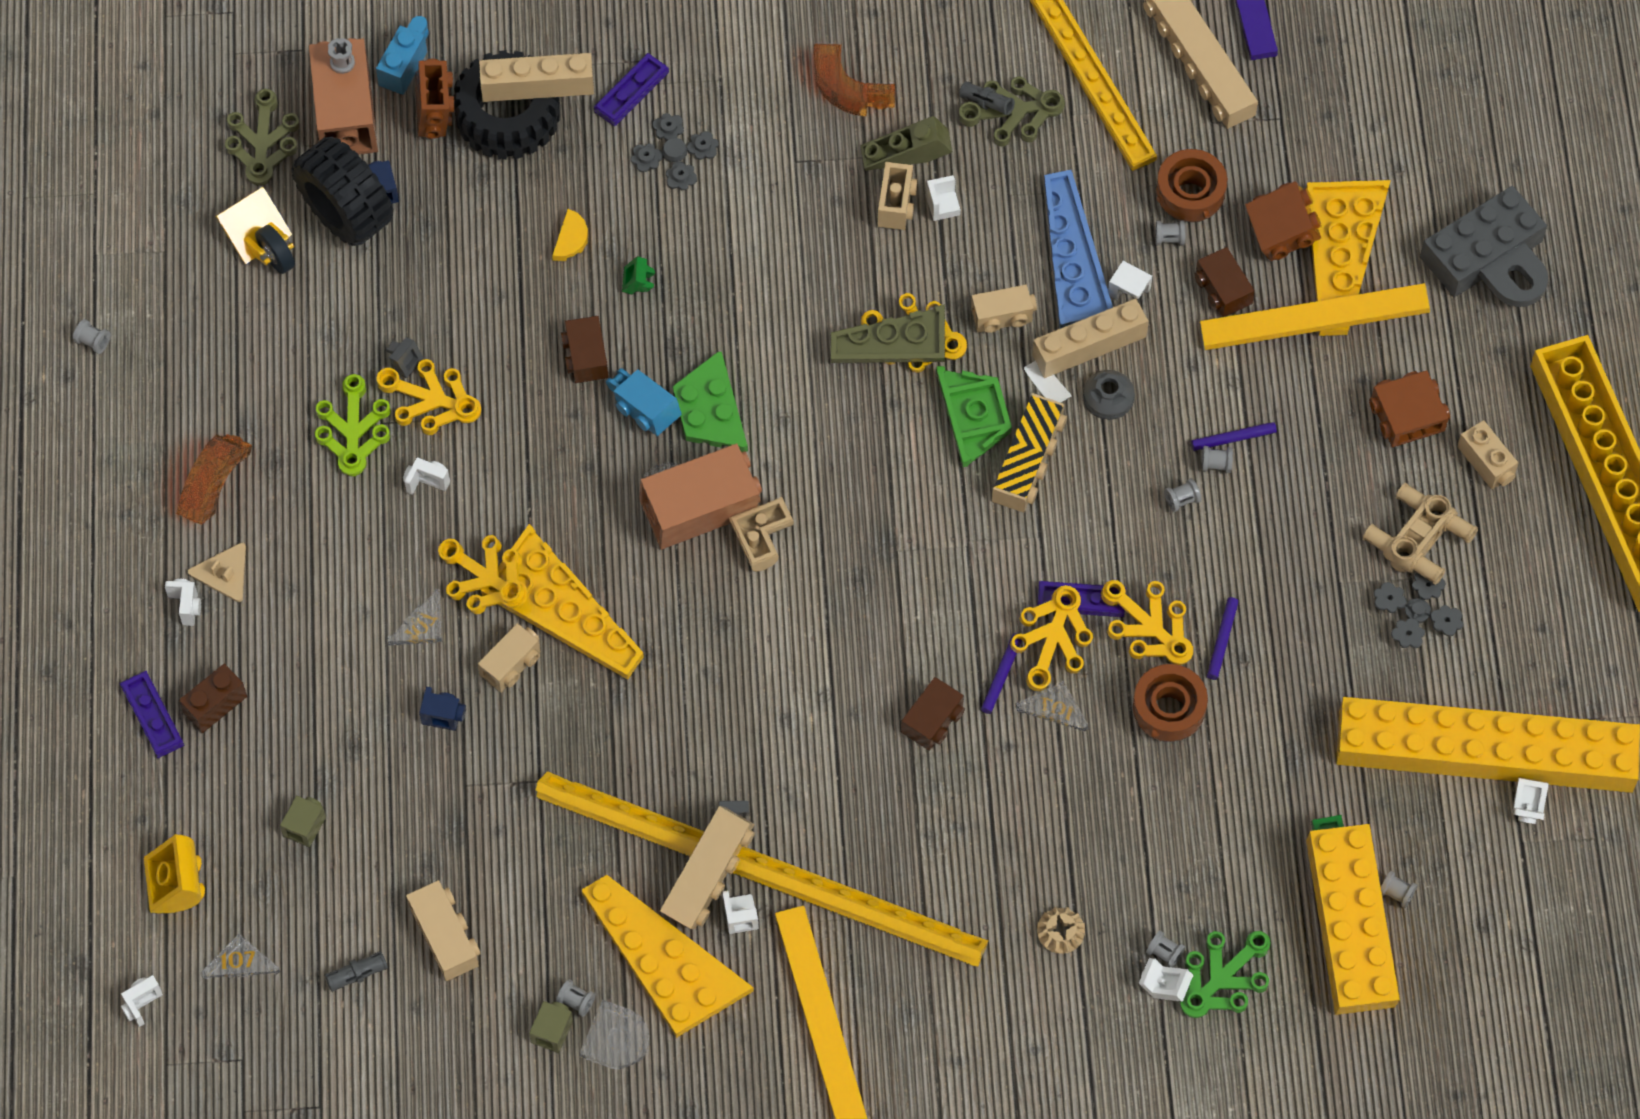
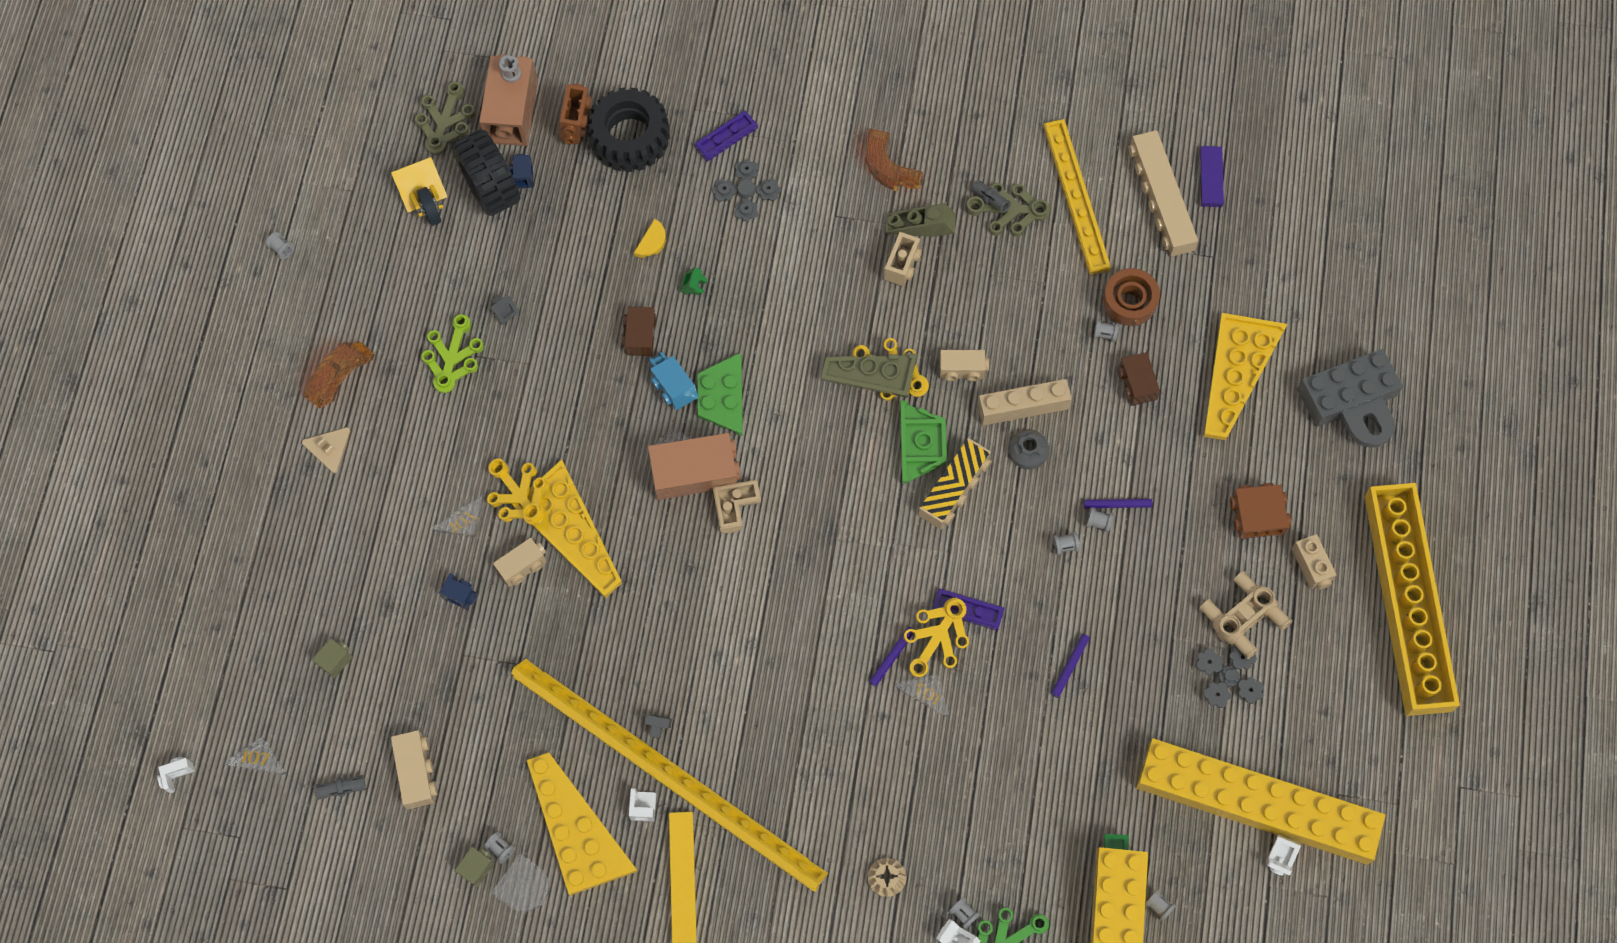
camera: 15 degrees right, 5 degrees up
(152, 714) = (245, 547): dark purple tile -> none
(173, 876) = (225, 680): yellow brick -> none
(189, 602) = (295, 464): white bracket -> none
(213, 698) = (291, 546): reddish brown brick -> none
(403, 55) = (565, 71): dark azure brick -> none
(431, 398) = (517, 345): yellow plant -> none
(431, 473) = (500, 404): white bracket -> none
(536, 77) = (651, 113): tan brick -> none
(708, 867) = (623, 768): tan brick -> none
(932, 714) = (830, 679): reddish brown brick -> none
(942, 198) = (938, 268): white panel -> none
(1050, 386) = (984, 433): white sticker -> none
(1076, 267) = (1027, 343): medium blue wing -> none
(1130, 281) = (1065, 363): white panel -> none
(1150, 625) = (1016, 643): yellow plant -> none
(1172, 682) = (1018, 693): dark orange piece -> none
(1284, 220) = (1196, 340): dark orange brick -> none
(1315, 316) = (1203, 421): yellow tile -> none

